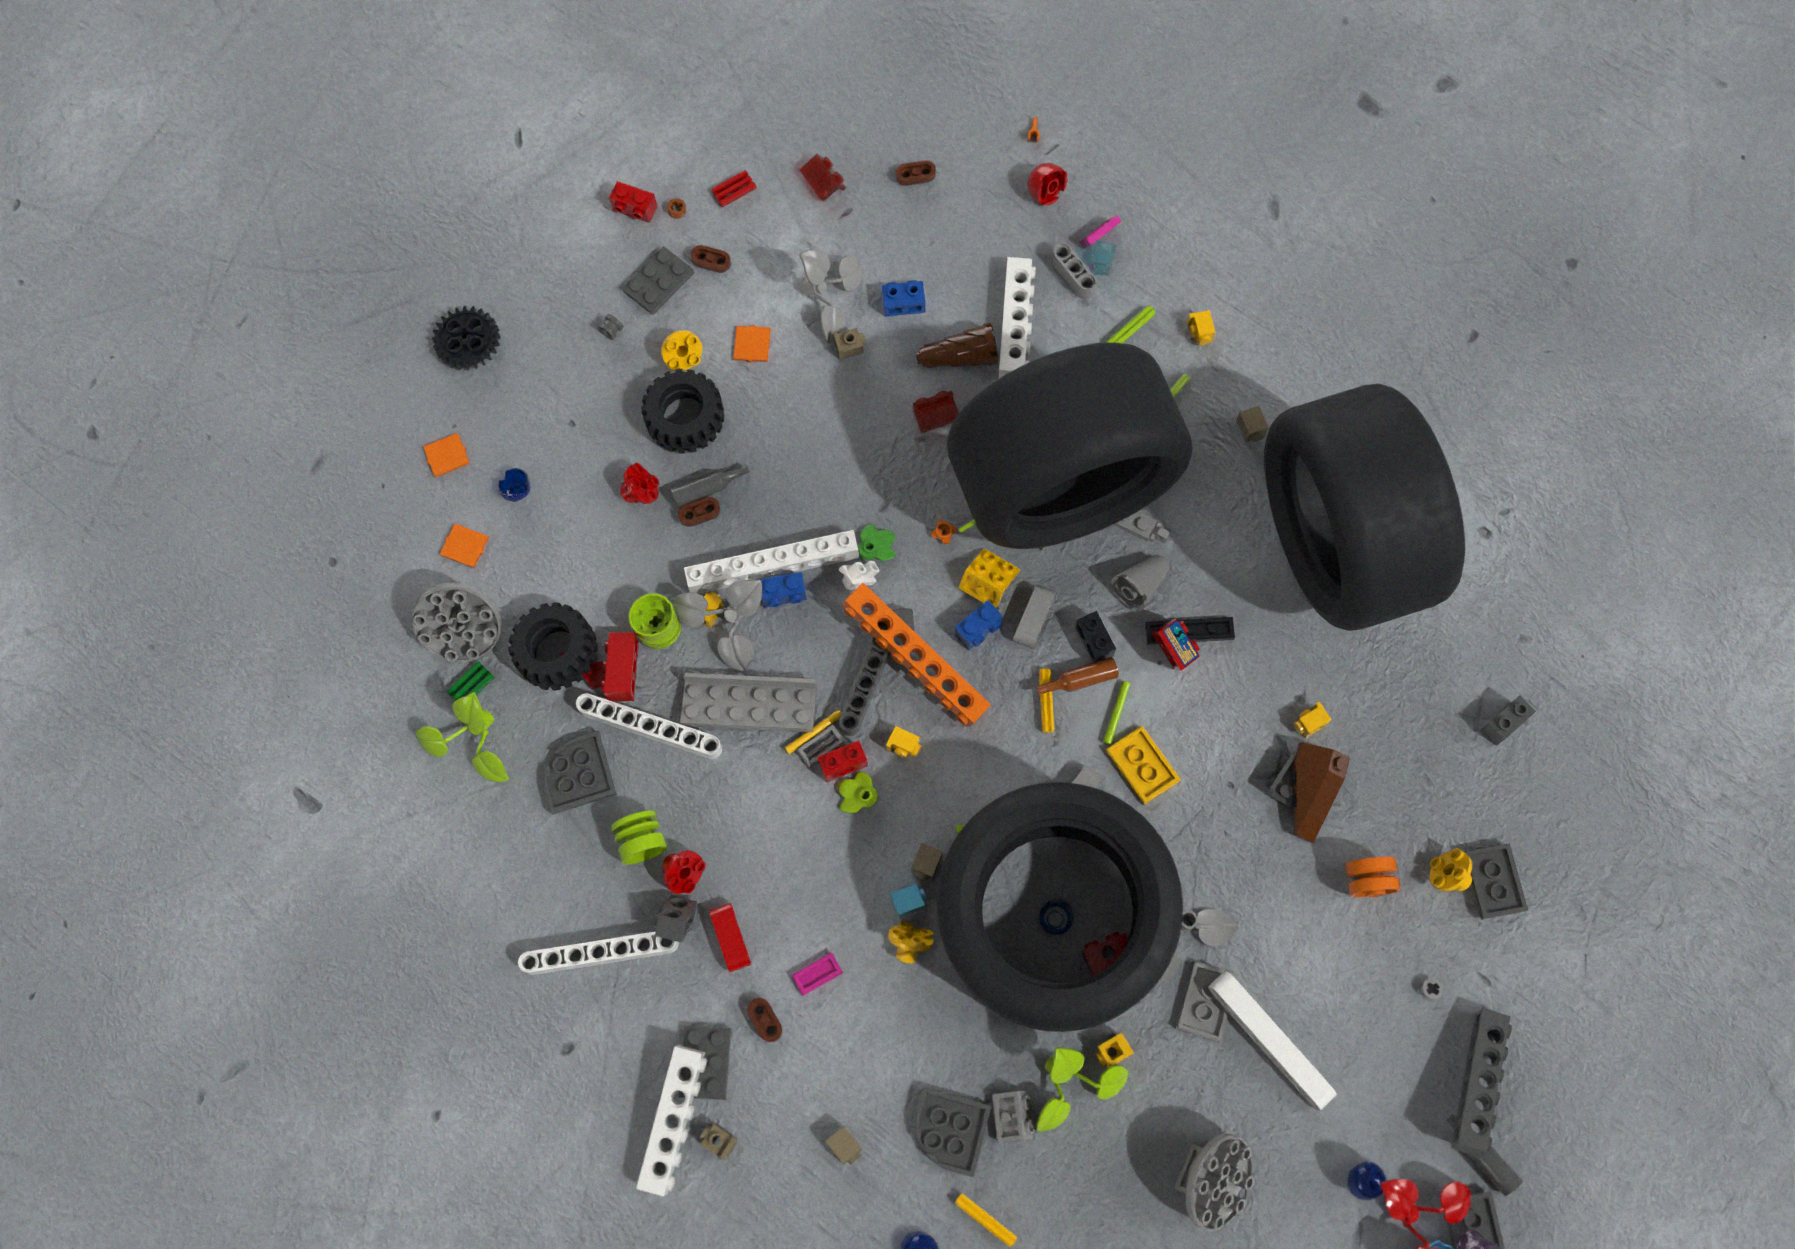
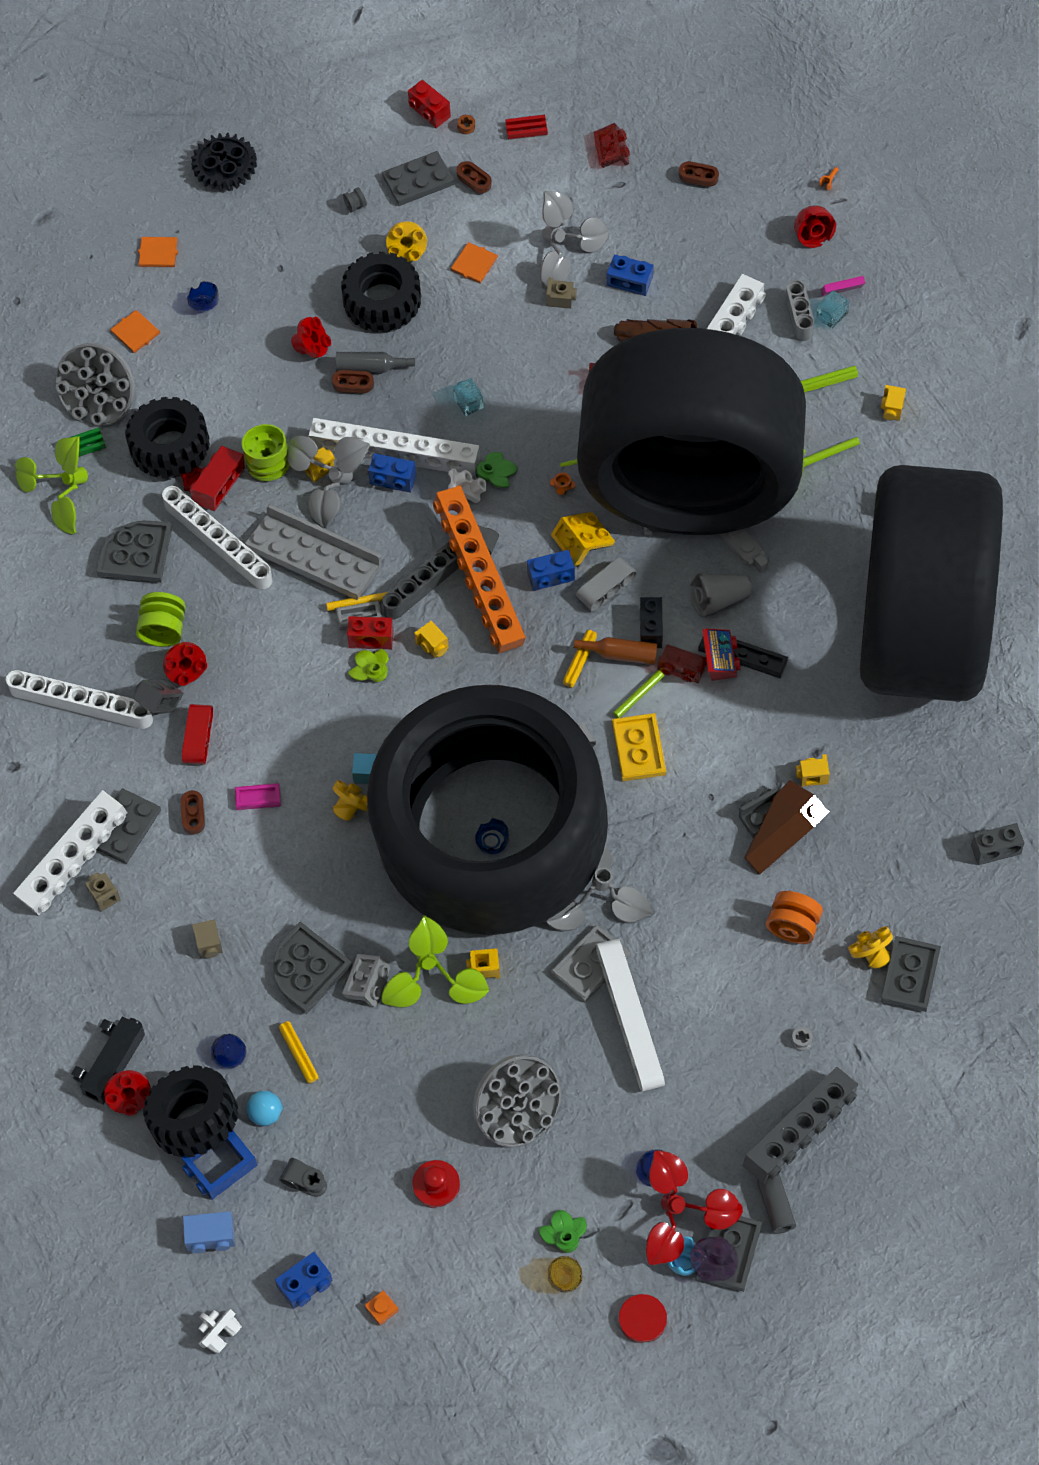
camera: 25 degrees right, 10 degrees down
(814, 482) = (468, 397): none -> clear light blue brick
(1141, 664) = (682, 664): none -> clear red bracket

